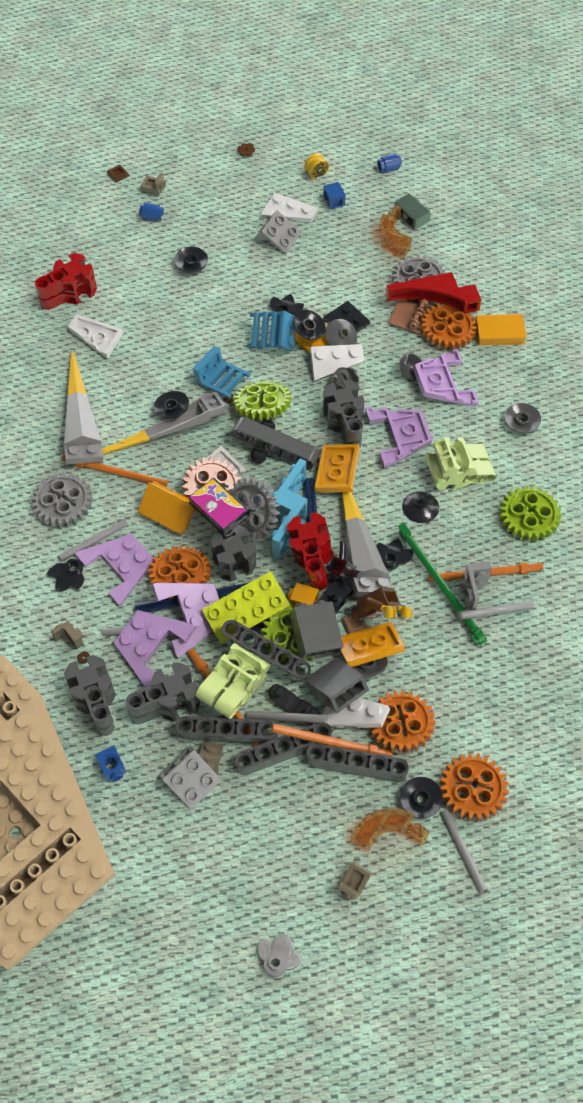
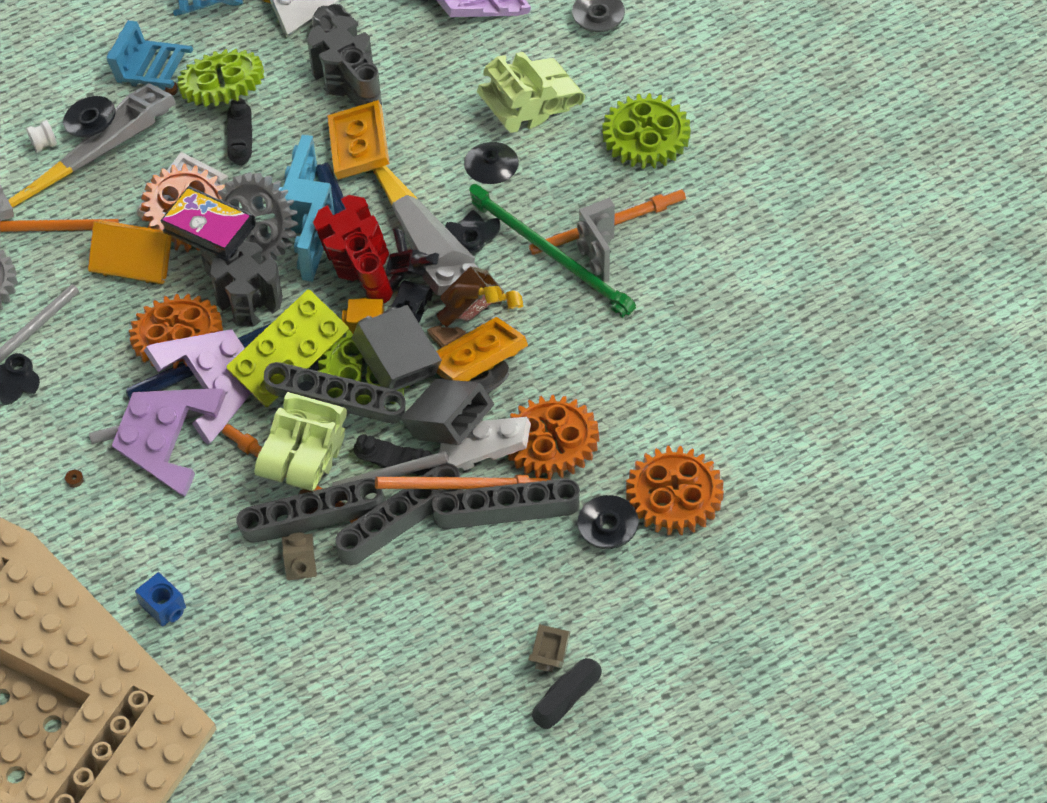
camera: 15 degrees left, 5 degrees down
(66, 628) = (44, 449): dark tan bracket -> none
(92, 692) = (104, 514): dark grey connector -> none
(126, 558) = (90, 334): lavender wing -> none
(137, 410) = (41, 136): none -> white wheel
(164, 696) = (209, 491): dark grey connector -> none
(190, 777) = (280, 584): light grey bracket -> none
(274, 442) = (255, 127): dark grey beam -> none
(280, 952) = (477, 766): light grey plate -> none
(356, 918) = (566, 692): none -> black piece
(387, 821) = (571, 563): clear orange arch -> none
(408, 431) = (440, 65): lavender wing -> none
(464, 851) = (685, 573): light grey piece -> none
(496, 610) = (637, 264): light grey bar -> none

